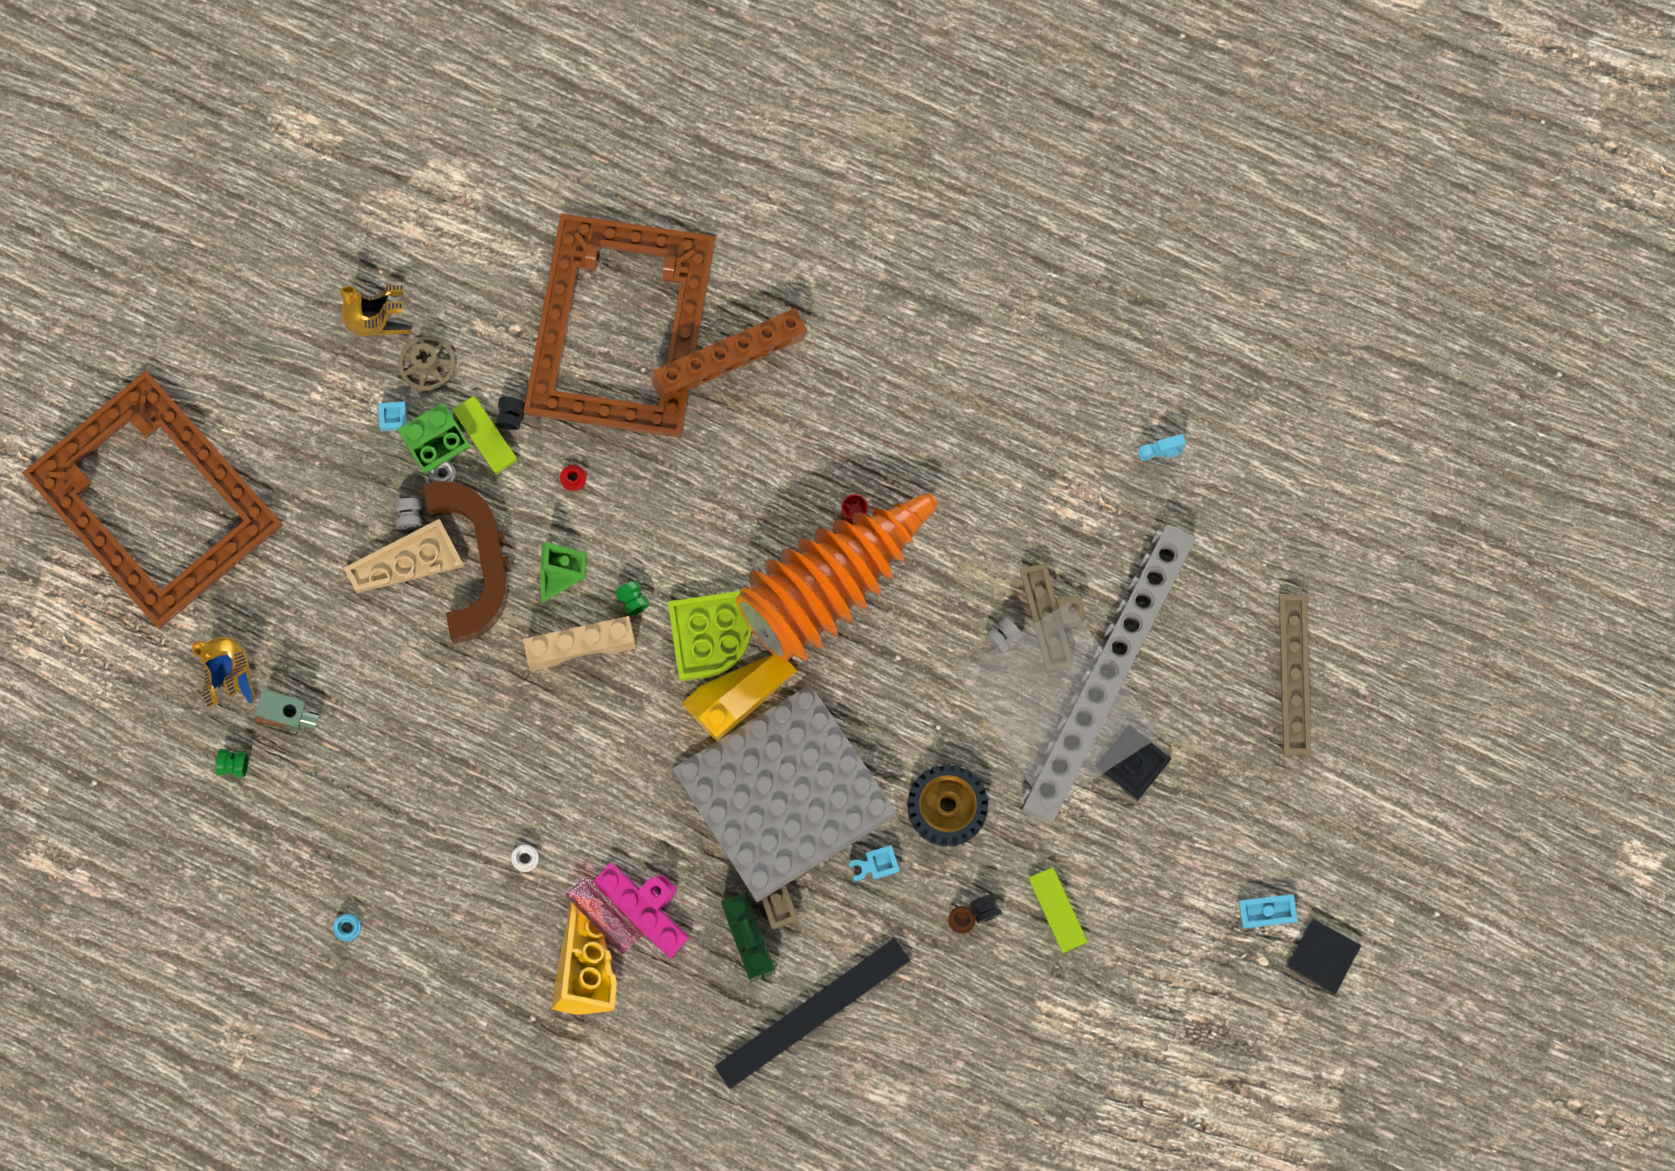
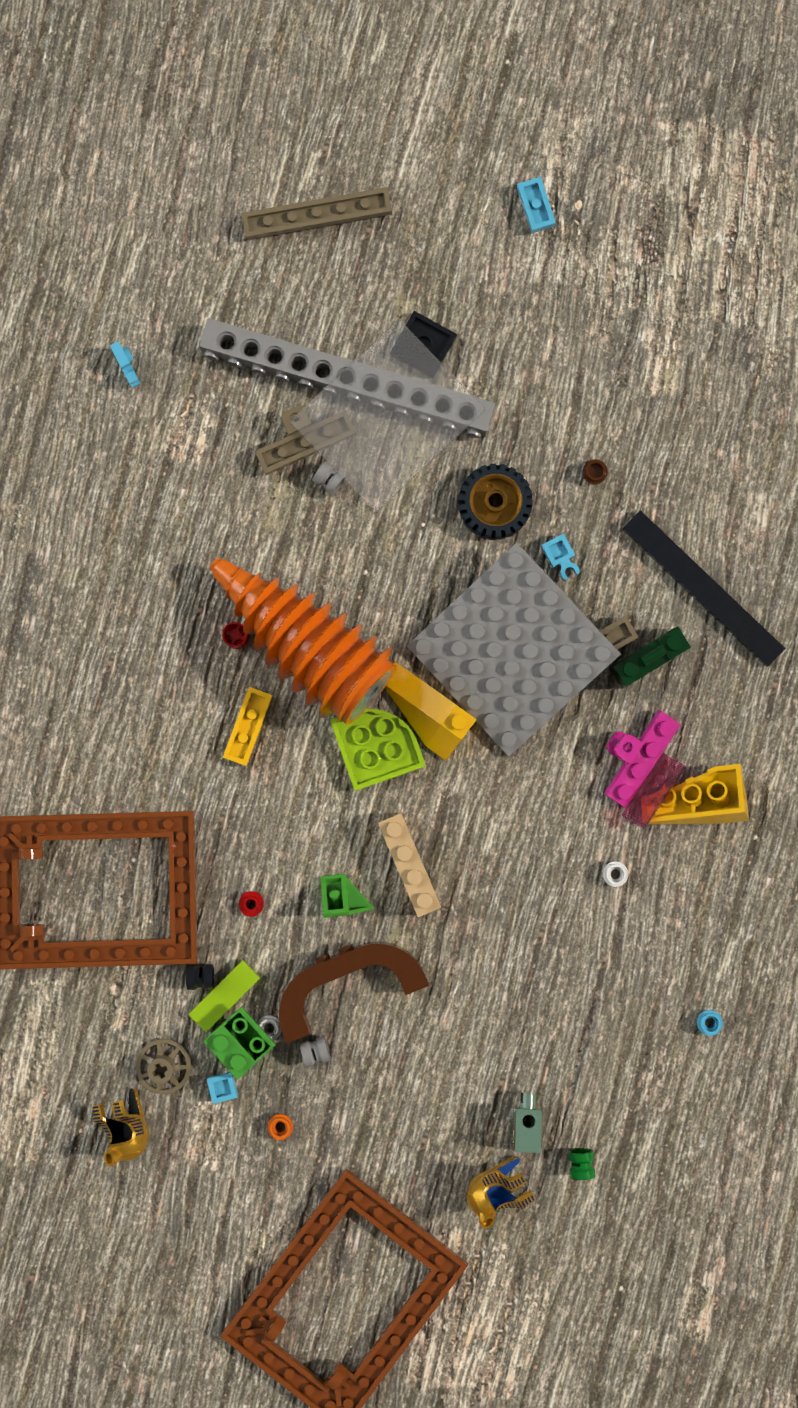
camera: 100 degrees left, 10 degrees up
(336, 460) = (274, 1132): none -> orange plate
(409, 558) = (356, 1041): tan wing -> none
(631, 596) = (357, 824): green wheel -> none
(728, 354) = (107, 779): dark orange brick -> none
(757, 506) = (247, 726): none -> yellow plate
(986, 908) = (582, 451): black wheel -> none
(1057, 910) = (569, 389): lime tile -> none
(1323, 956) = (565, 151): black tile -> none

